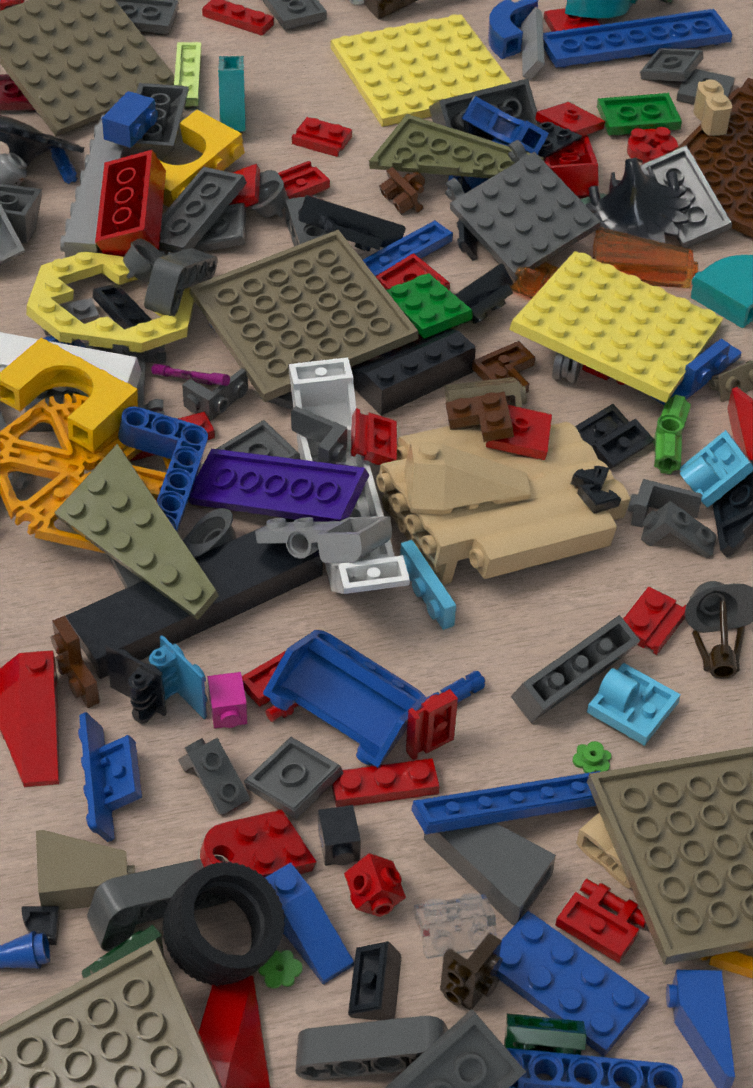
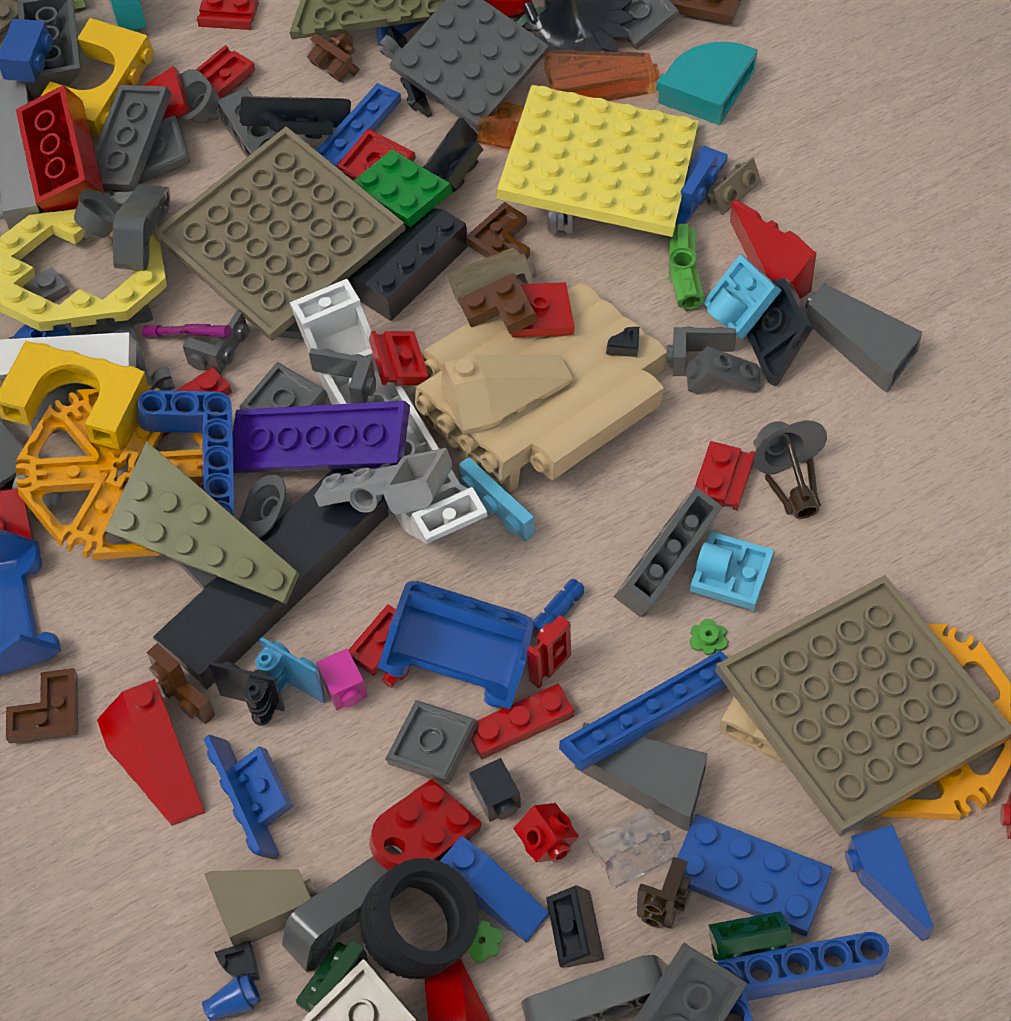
camera: 10 degrees left, 10 degrees up
(119, 306) = (87, 271): black plate -> none
(215, 774) = (355, 760): dark grey bracket -> none
(597, 499) = (637, 363): black tile -> none
(599, 927) = (765, 810): red plate -> none
(613, 435) = (628, 283): black slope -> none

